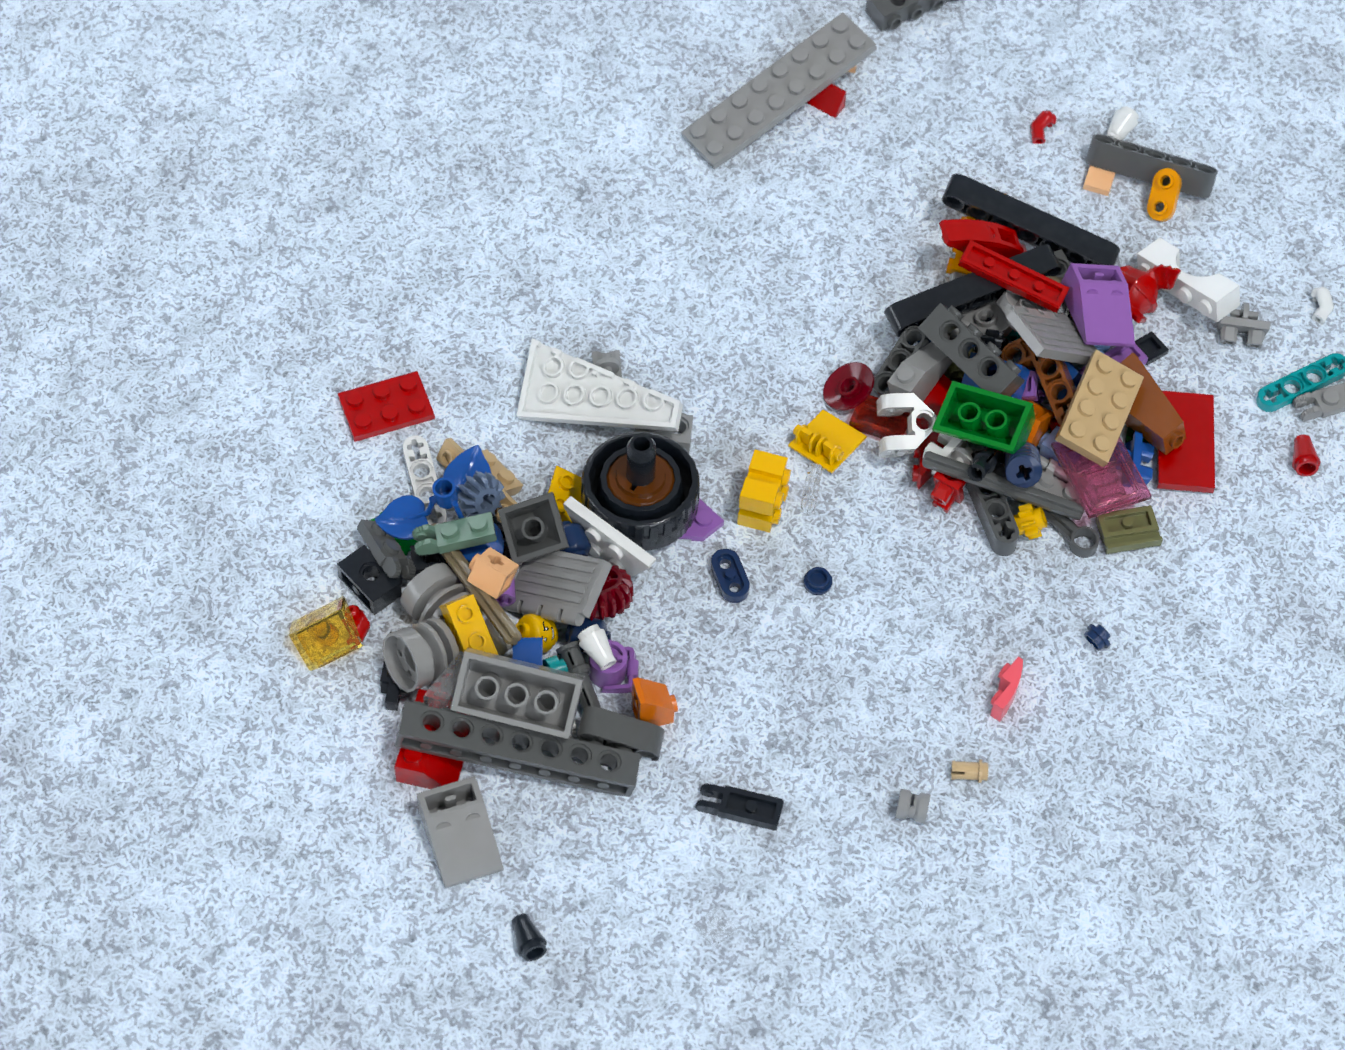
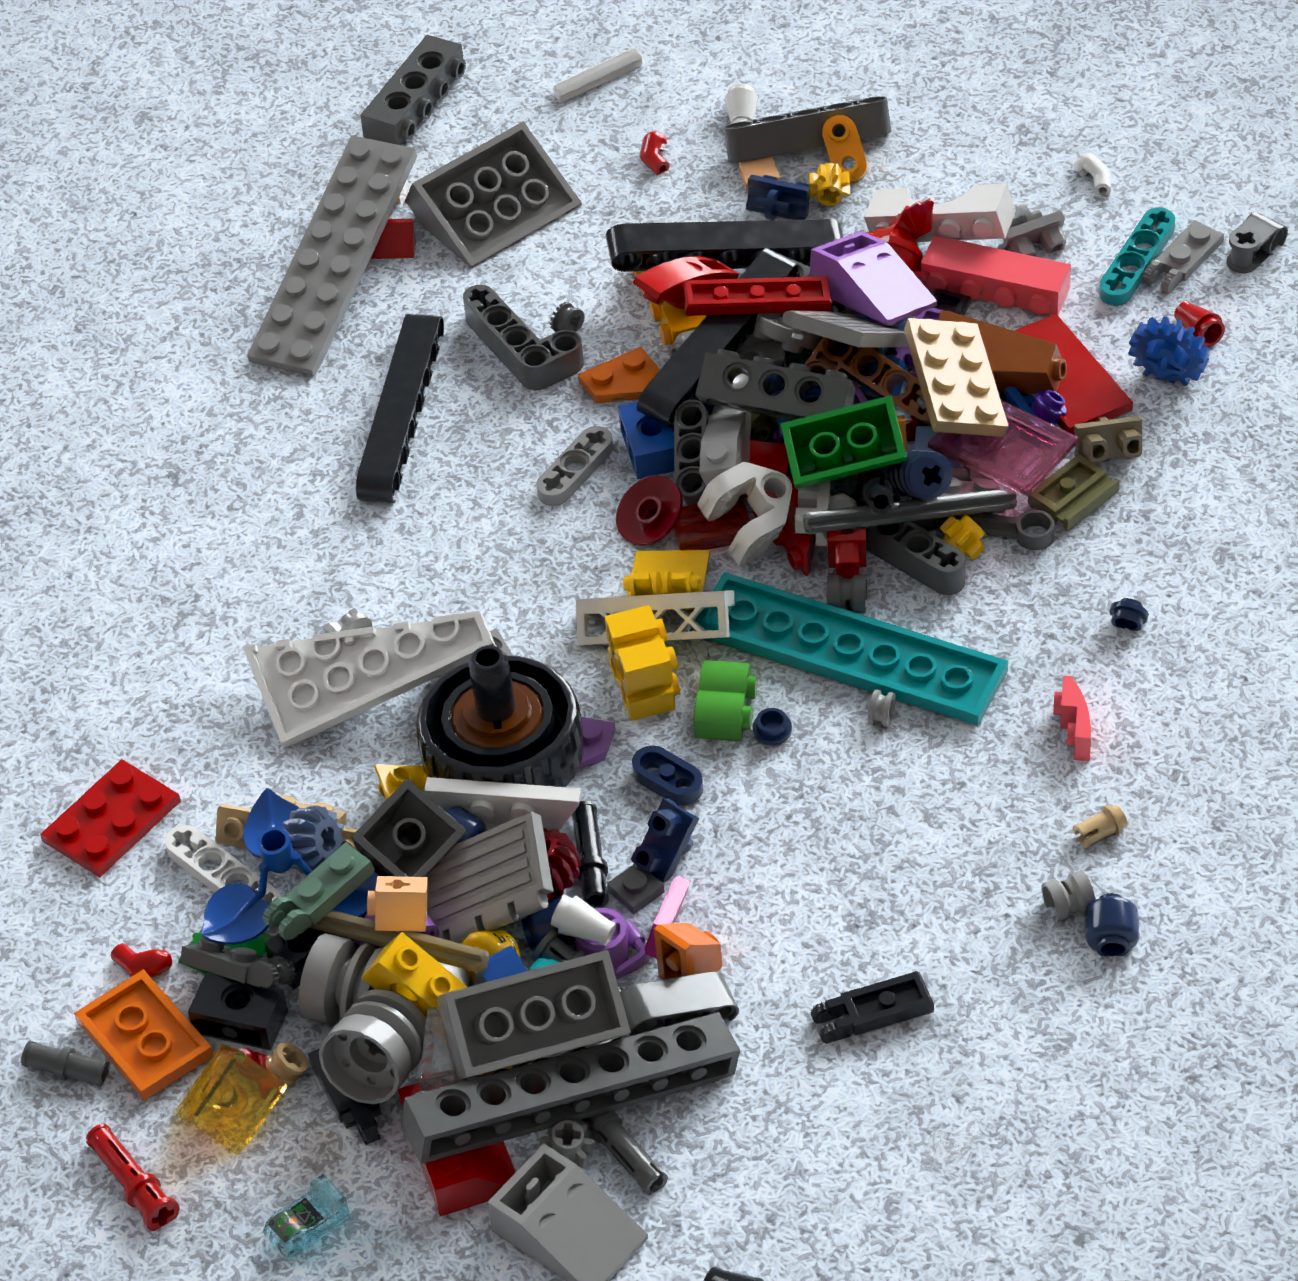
camera: 25 degrees left, 10 degrees down
(240, 658) = (140, 1188): none -> red pin
(251, 552) = (65, 1063): none -> dark grey pin
(307, 561) = (144, 1035): none -> orange plate
(317, 737) = (308, 1218): none -> clear light blue leg
(339, 515) = (152, 961): none -> red arm
(376, 623) = (287, 1063): none -> tan bush
(497, 790) = (570, 1133): none -> light grey gear
(529, 810) = (608, 1130): none -> dark grey pin
(641, 608) = (588, 845): none -> black pin
(658, 639) = (635, 888): none -> dark grey plate
(663, 667) = (668, 911): none -> tile
(695, 619) = (665, 840): none -> dark blue hips
(747, 222) = (398, 408): none -> black beam
(800, 545) = (723, 700): none -> bright green brick
(805, 456) = (659, 602): none -> white fence
(835, 318) = (576, 452): none -> light grey beam
(854, 238) = (530, 360): none -> dark grey beam
(879, 338) = (647, 442): none -> blue brick
(893, 608) = (881, 708): none -> light grey bush
(896, 219) = (567, 318): none -> dark grey bush
(902, 279) = (619, 377): none -> orange wing
(906, 556) = (857, 650): none -> teal plate
(912, 102) = (492, 196): none -> light grey slope
(925, 841) = (1112, 925): none -> dark blue head
(929, 516) = (847, 592): none -> dark grey wheel
(1047, 47) = (598, 75): none -> white axle
(1095, 206) = (778, 198): none -> dark blue hips
(1135, 215) = (829, 184): none -> yellow gear
(1153, 461) = (1049, 406): none -> dark purple plate
(1178, 506) = (1109, 438): none -> dark tan hips
(1195, 344) = (996, 275): none -> coral brick
(1262, 466) = (1168, 351): none -> blue gear

